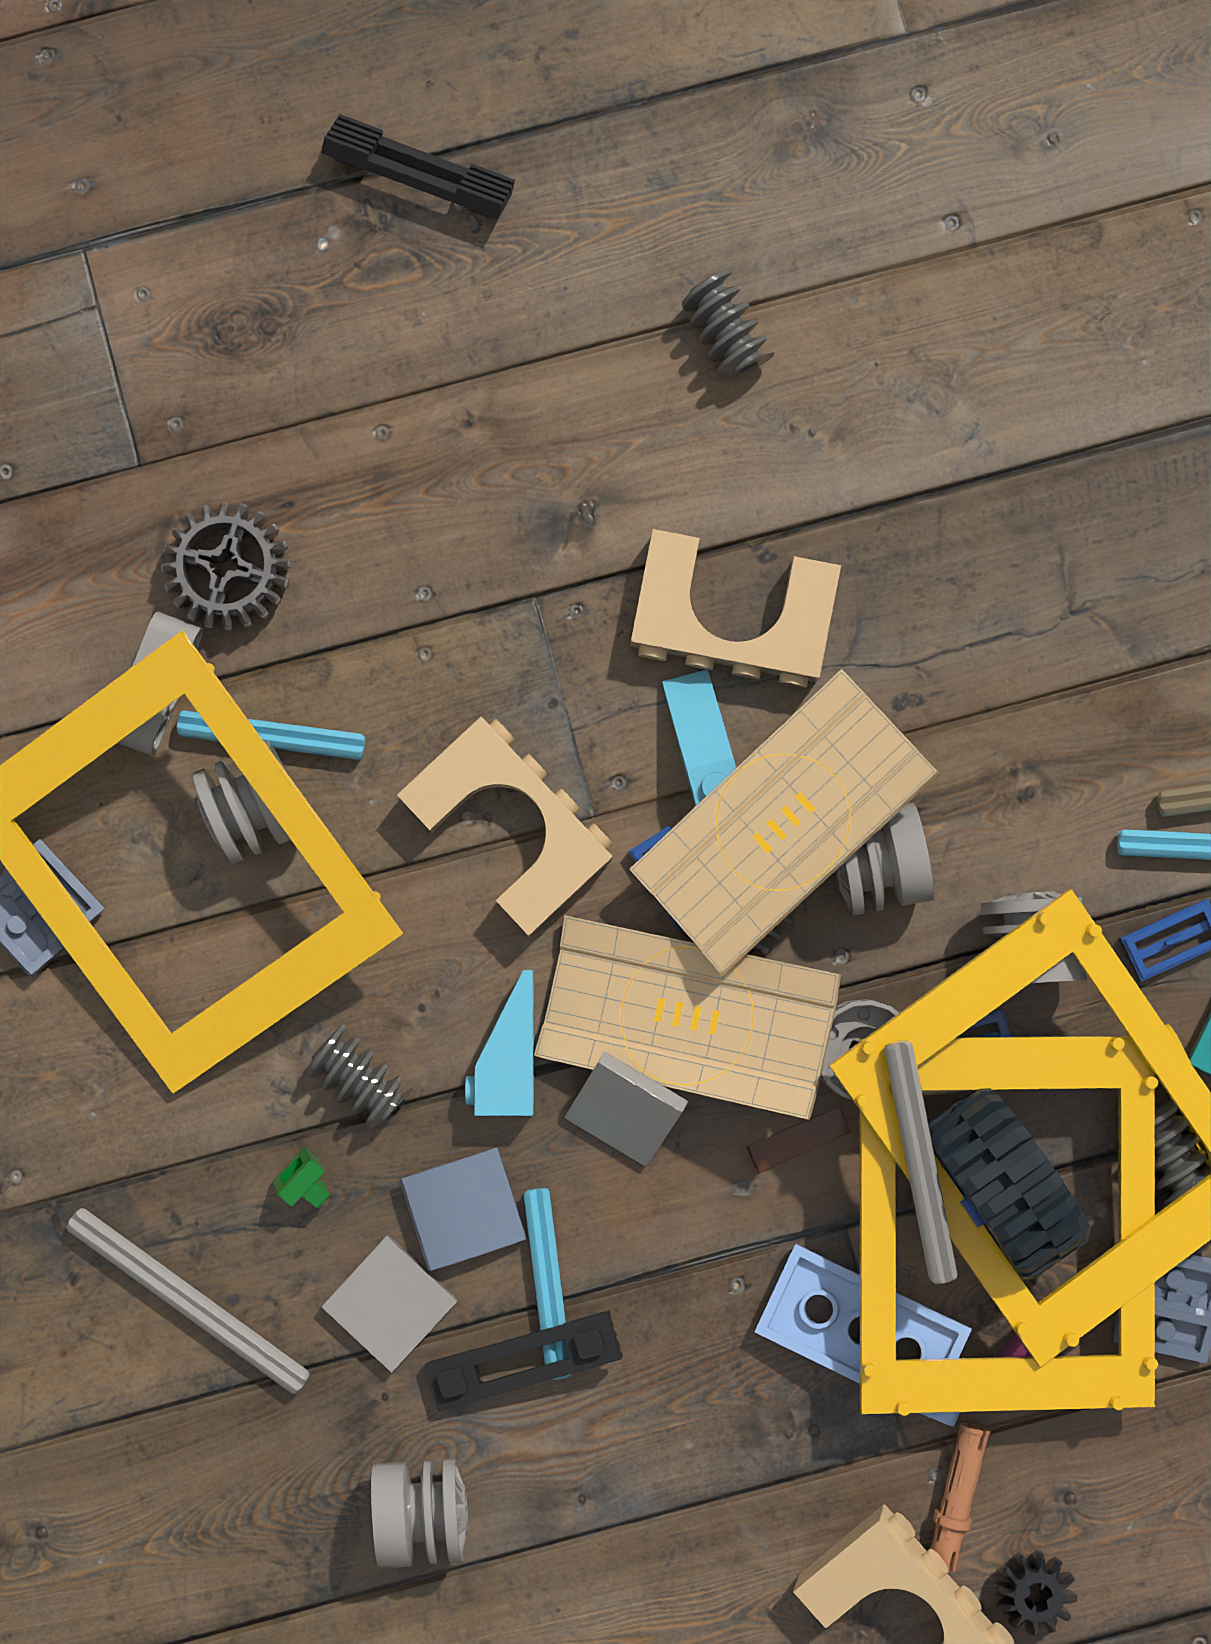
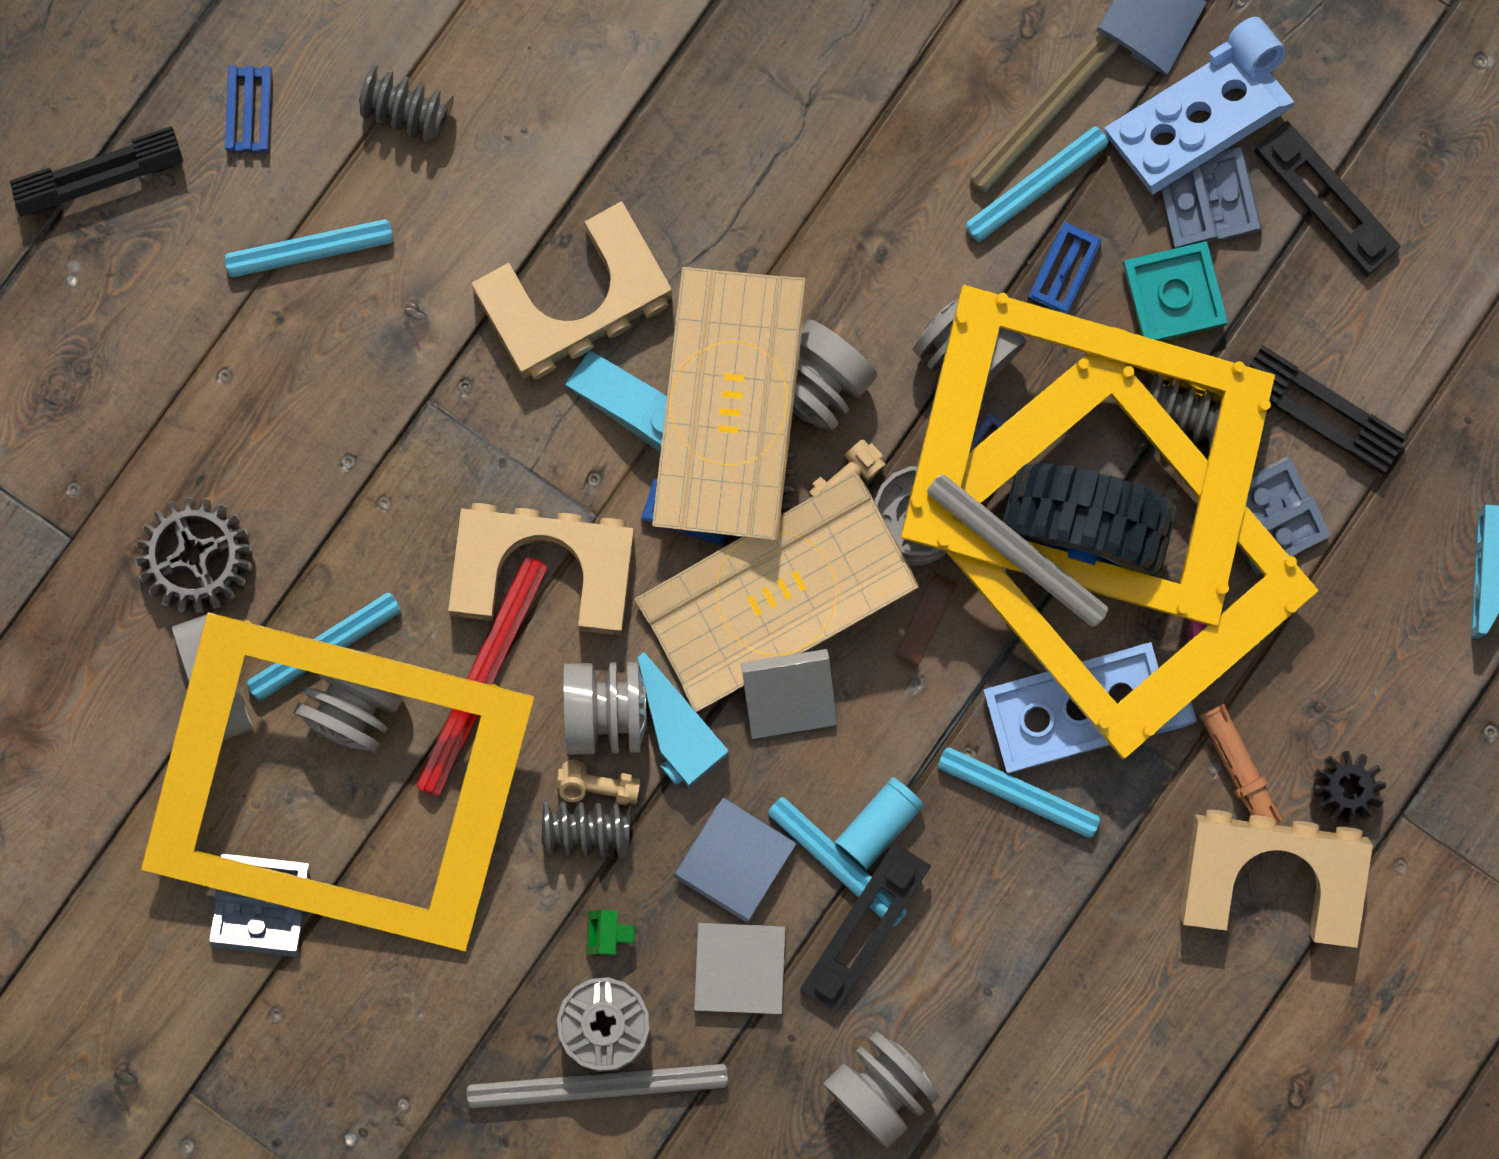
camera: 45 degrees left, 5 degrees down
(259, 1250) = (589, 1047): none -> light grey wheel
(383, 1028) = (574, 783): none -> tan bar
(386, 869) = (483, 670): none -> red axle
(456, 989) = (603, 708): none -> light grey wheel
(543, 382) = (308, 248): none -> medium azure axle
(609, 1282) = (879, 823): none -> medium azure pin
(618, 189) = (249, 73): none -> blue tile
(751, 1355) = (1019, 792): none -> medium azure axle
(859, 961) = (862, 459): none -> tan bar

